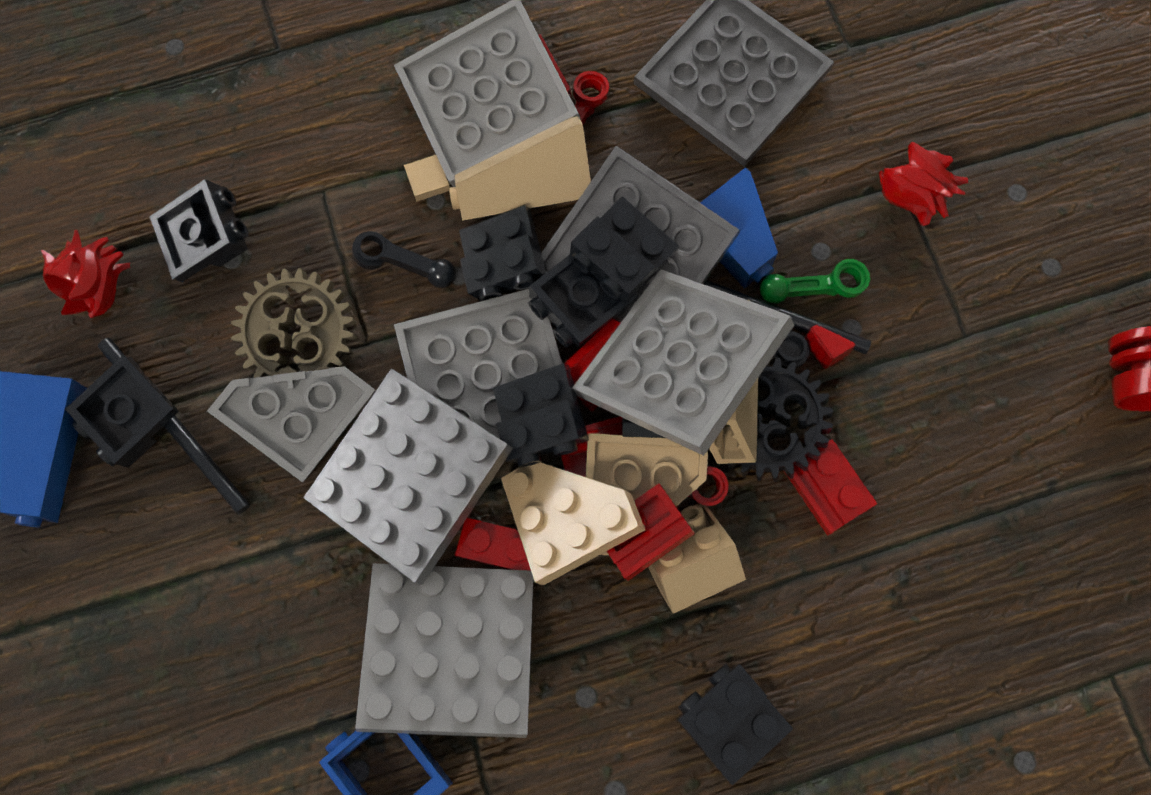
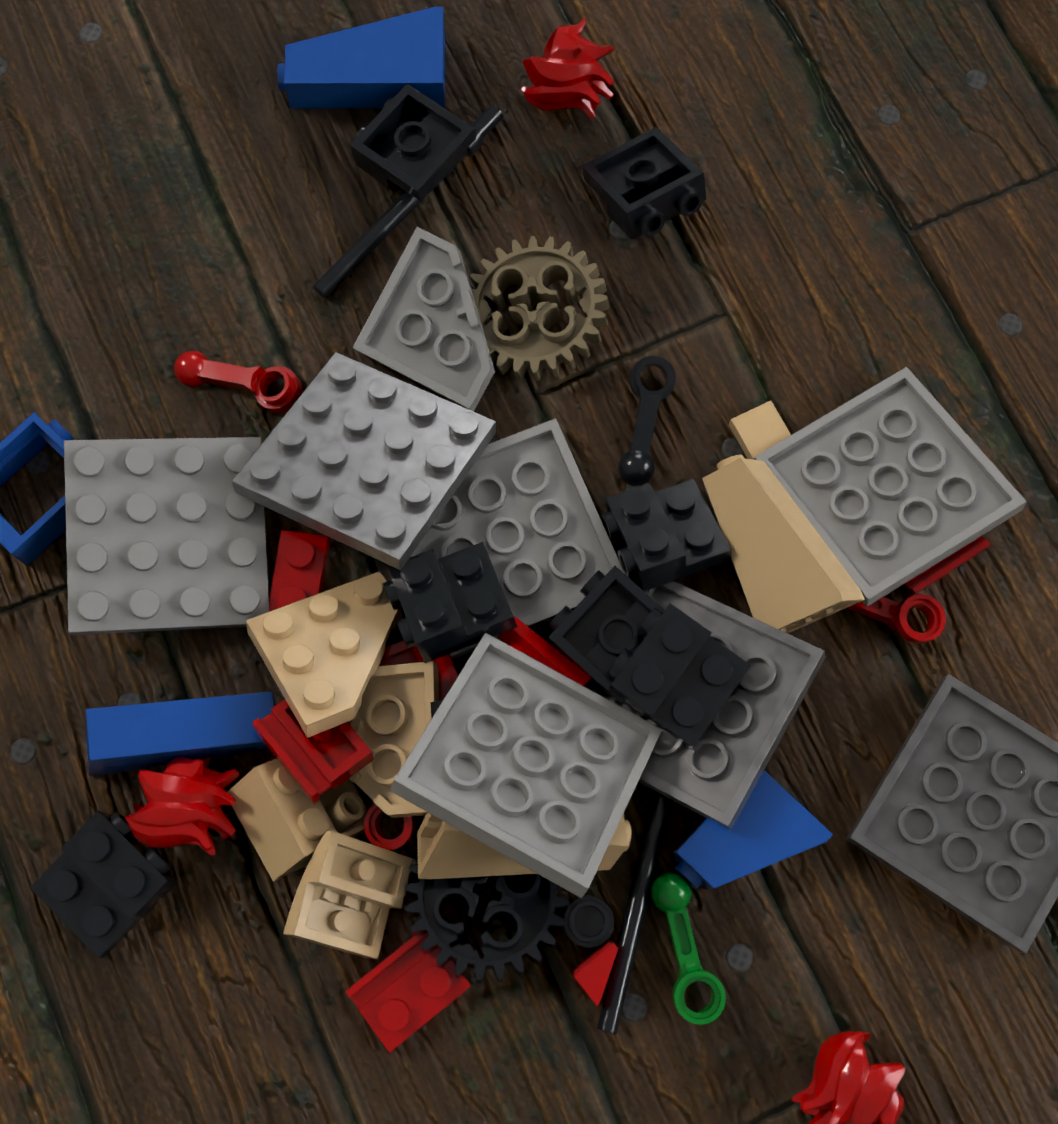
camera: 80 degrees right, 0 degrees up
(295, 623) = (195, 369): none -> red piece
(619, 653) = (160, 731): none -> blue slope
(681, 646) = (183, 805): none -> red hair
(761, 521) = (348, 895): none -> tan slope

